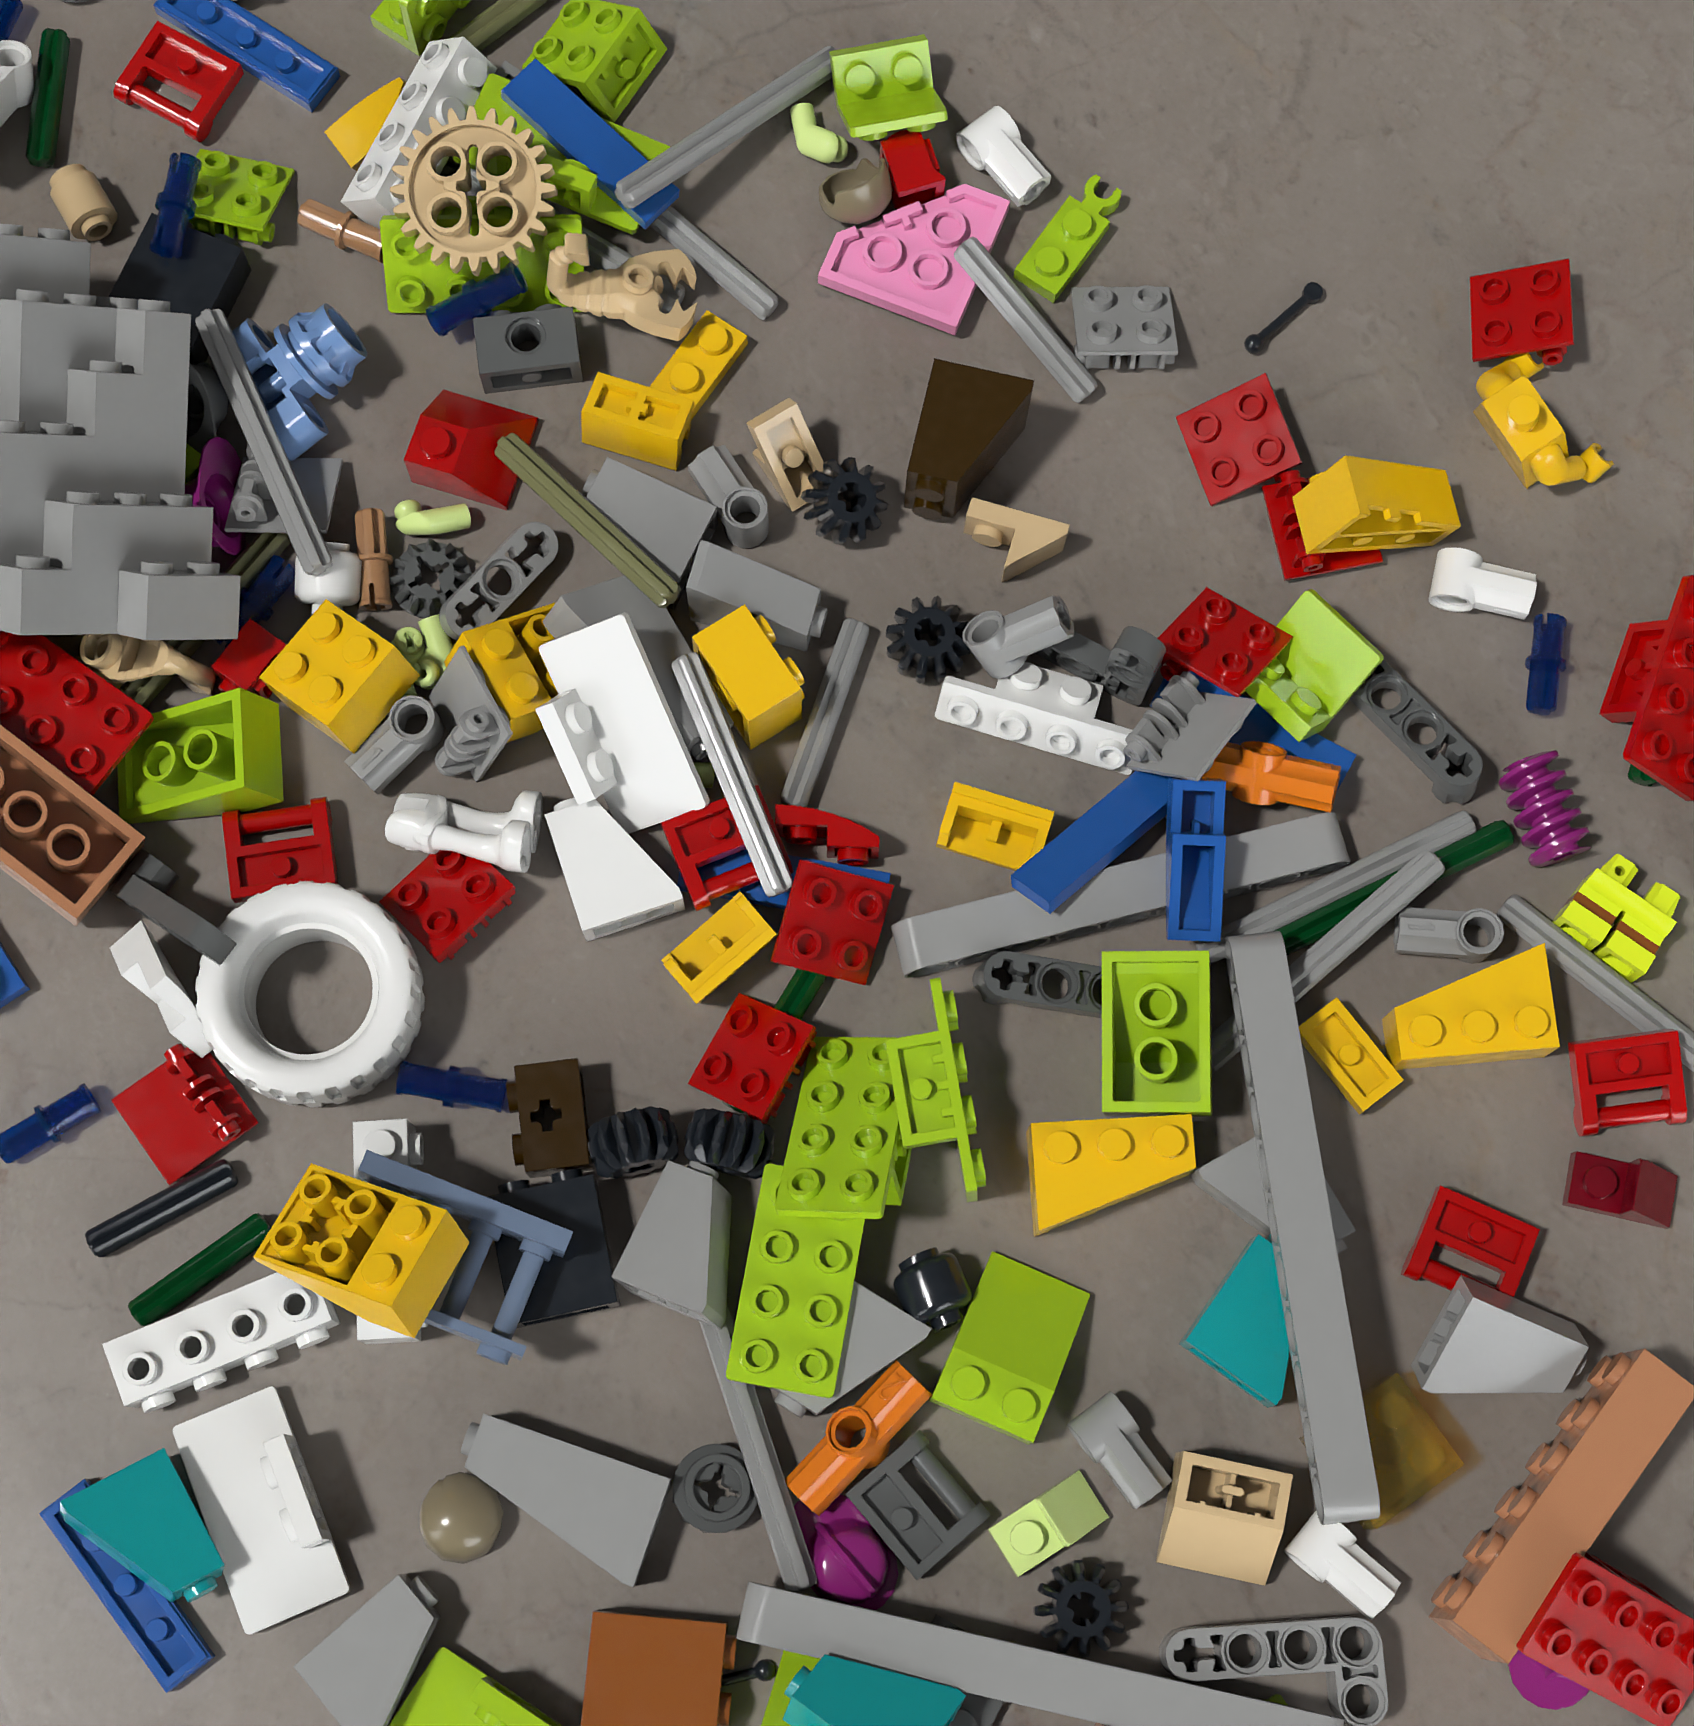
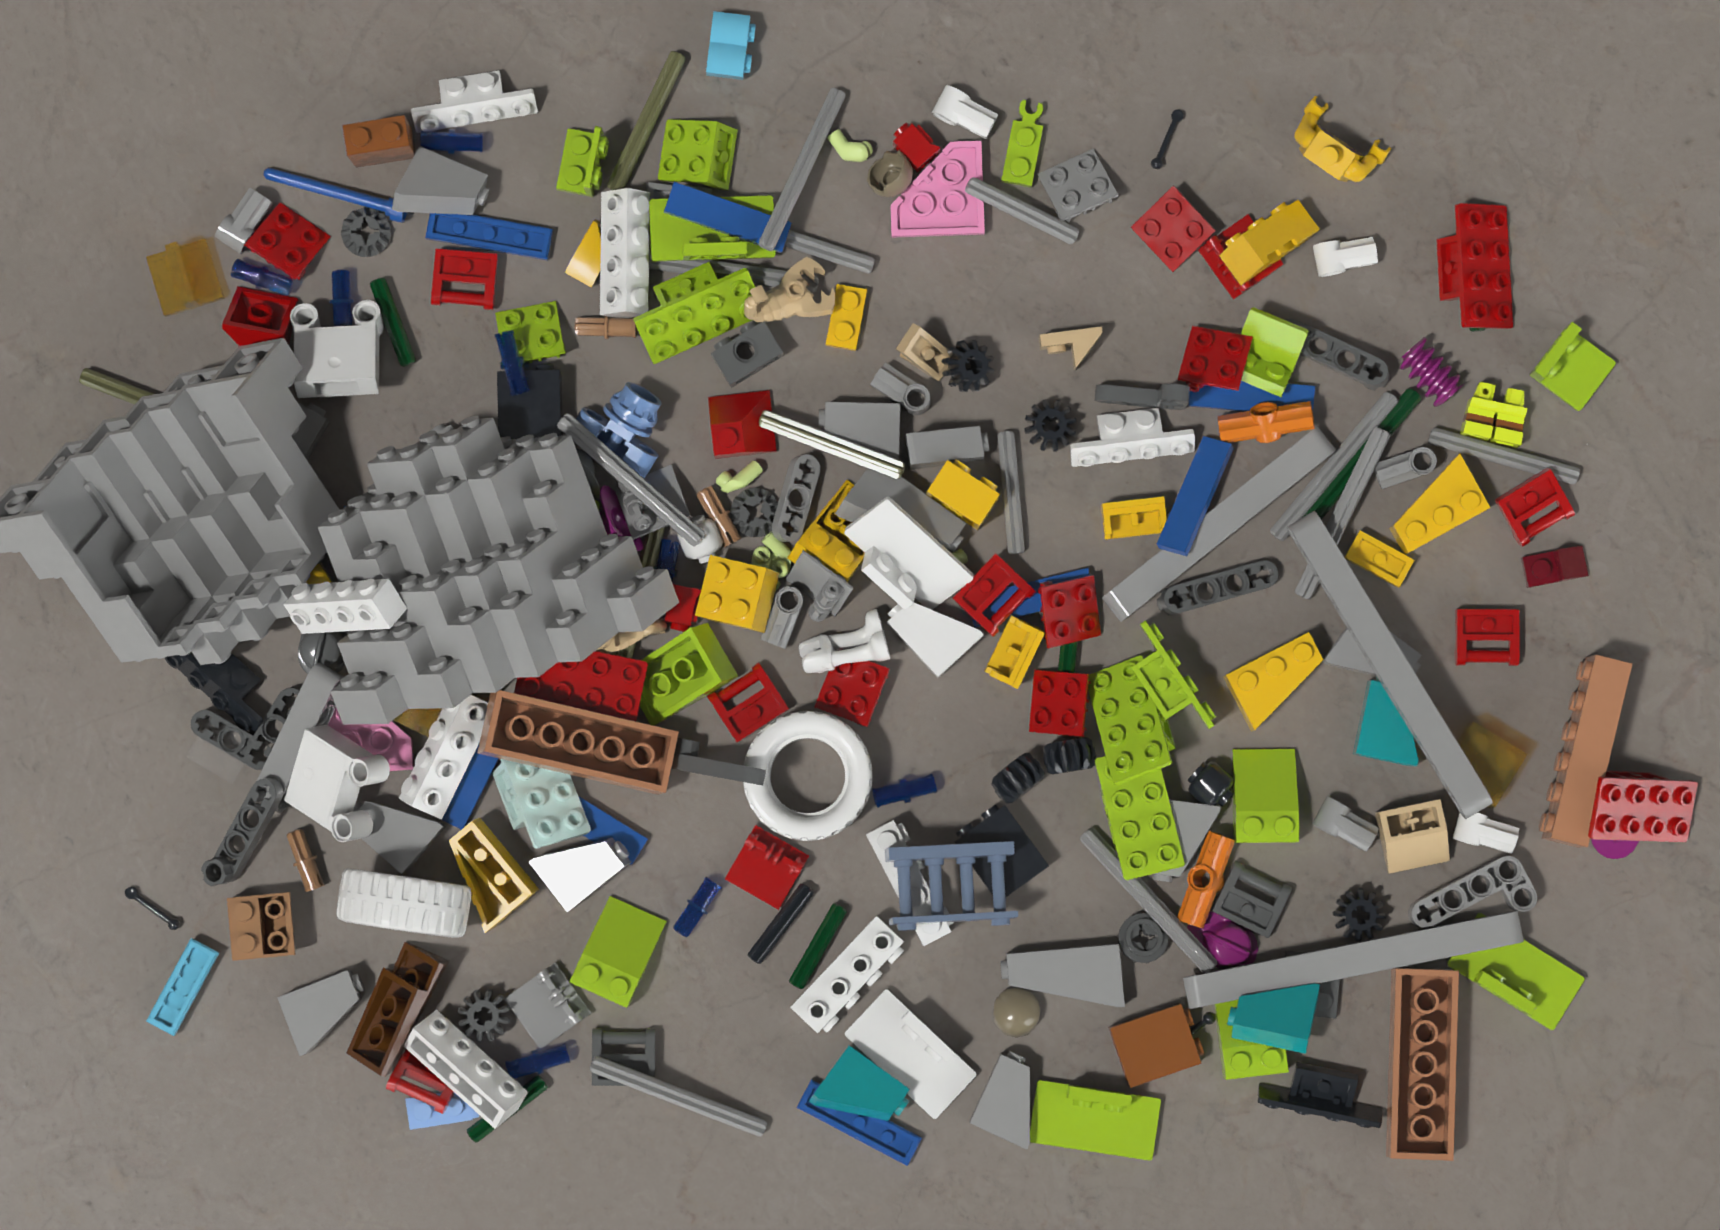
camera: 20 degrees left, 10 degrees up
(82, 202) = (449, 379): tan brick -> none
(148, 970) = (717, 803): white slope -> none
(364, 1248) = (913, 898): yellow slope -> none
(429, 193) = (710, 273): tan gear -> none
(476, 299) = (706, 340): clear blue pin -> none
(557, 1086) = (982, 792): dark brown brick -> none
(636, 420) = (828, 369): yellow hinge -> none
(682, 1245) = (1069, 820): light grey slope -> none
(732, 774) = (981, 555): light grey axle -> none
(845, 839) = (1053, 560): red slope -> none
(886, 88) = (881, 105): lime bracket -> none
(962, 434) = (1016, 300): dark brown slope -> none
(1006, 641) = (1097, 410): light grey piece -> none
(1048, 1523) = (1323, 878): yellowish green slope -> none
(1156, 1033) = (1272, 596): lime slope -> none
(1185, 730) = (1219, 420): light grey hinge -> none
(1195, 859) = (1252, 490): blue slope -> none
(1497, 1346) = (1521, 682): light grey slope -> none
(1523, 312) = (1302, 79): red hinge -> none
(1545, 664) = (1398, 286): clear blue axle -> none

